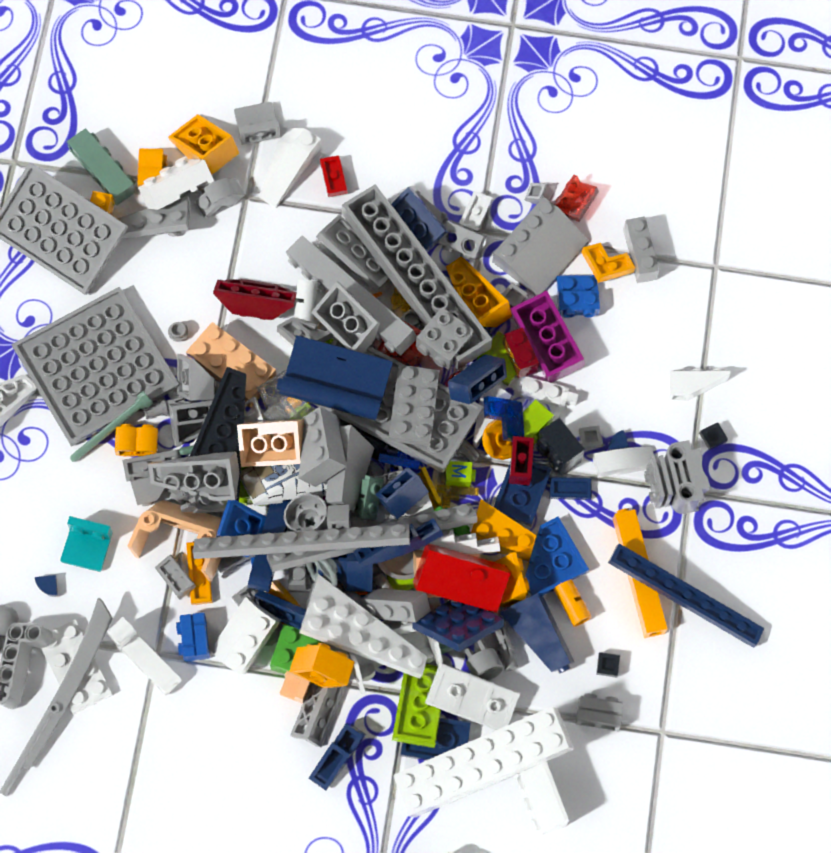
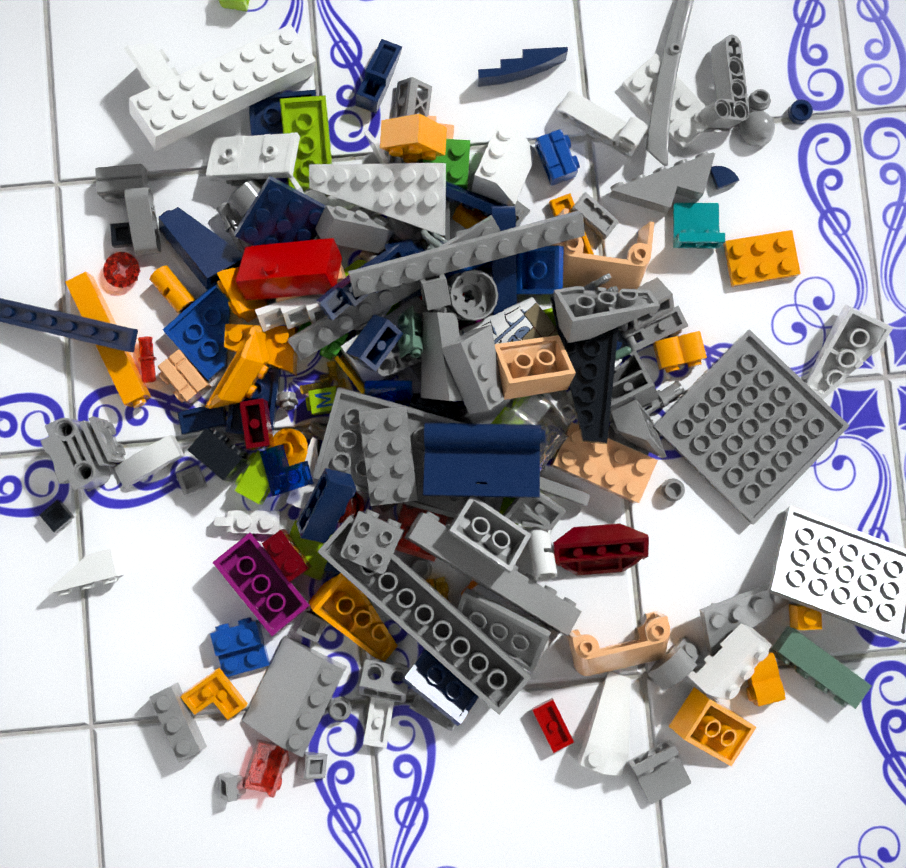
camera: 170 degrees right, 15 degrees up
(37, 505) = (761, 258): none -> light orange plate
(109, 585) = (659, 188): none -> light grey slope
(141, 402) = (687, 393): sand green piece -> none
(193, 730) = (531, 63): none -> dark blue slope
(235, 216) = (651, 646): none -> light nougat windscreen
(270, 350) = (564, 491): none -> light grey beam
(492, 482) = (286, 400): none -> light grey plate
(504, 229) = (339, 708): none -> light grey plate
(526, 504) = (242, 372): none -> light orange wedge
(579, 524) = (184, 377): none -> light nougat brick
(586, 668) = (143, 221): none -> light grey beam
(608, 546) = (147, 359): none -> clear red axle
(609, 192) = (228, 786): none -> light grey tile
(618, 441) = (160, 482): dark blue tile -> none
(620, 626) = (111, 268): none -> clear red gear

